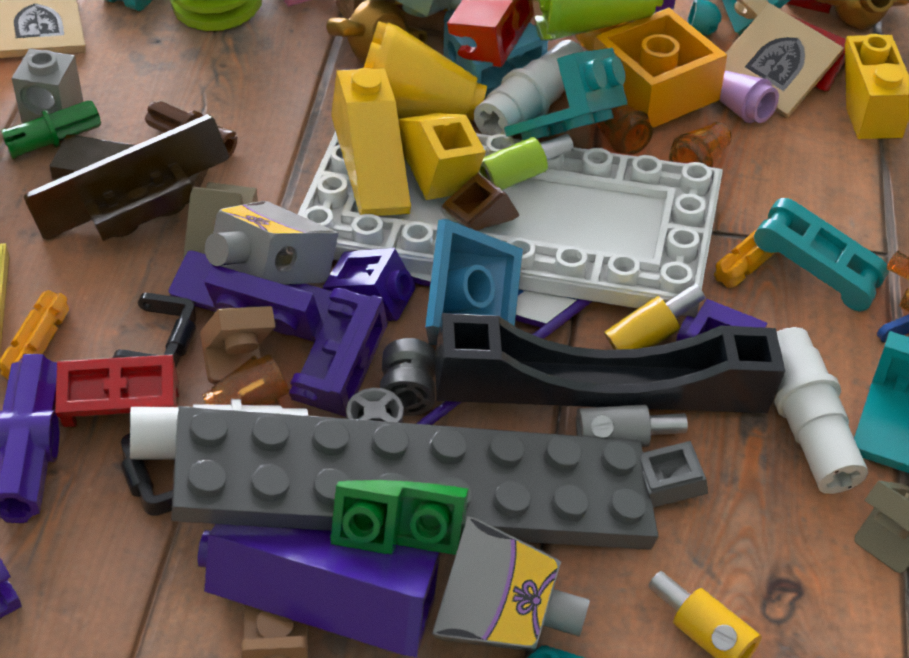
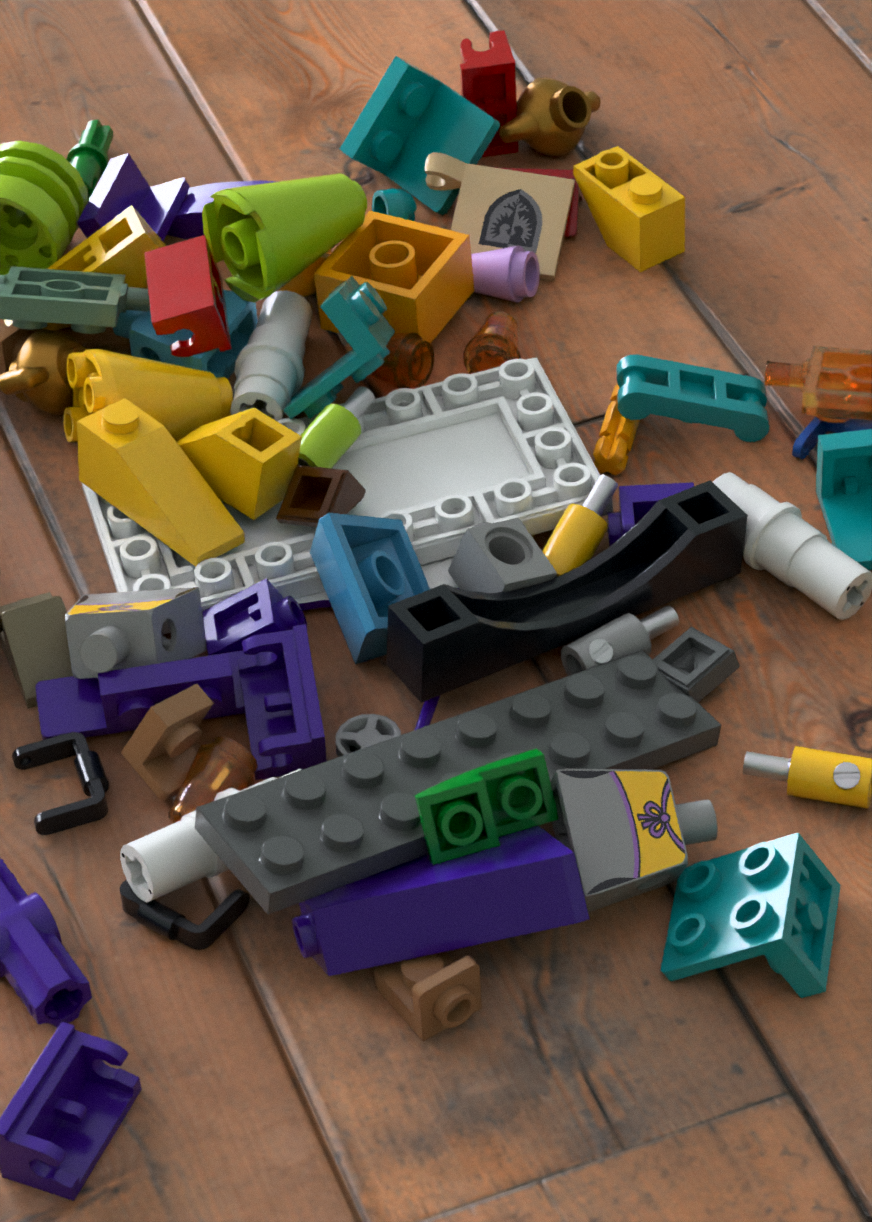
camera: 25 degrees left, 5 degrees down
(114, 386) = (78, 840): red hinge -> none
(411, 378) = (367, 687): flat silver wheel -> none
(584, 305) = (499, 559): none -> light grey brick

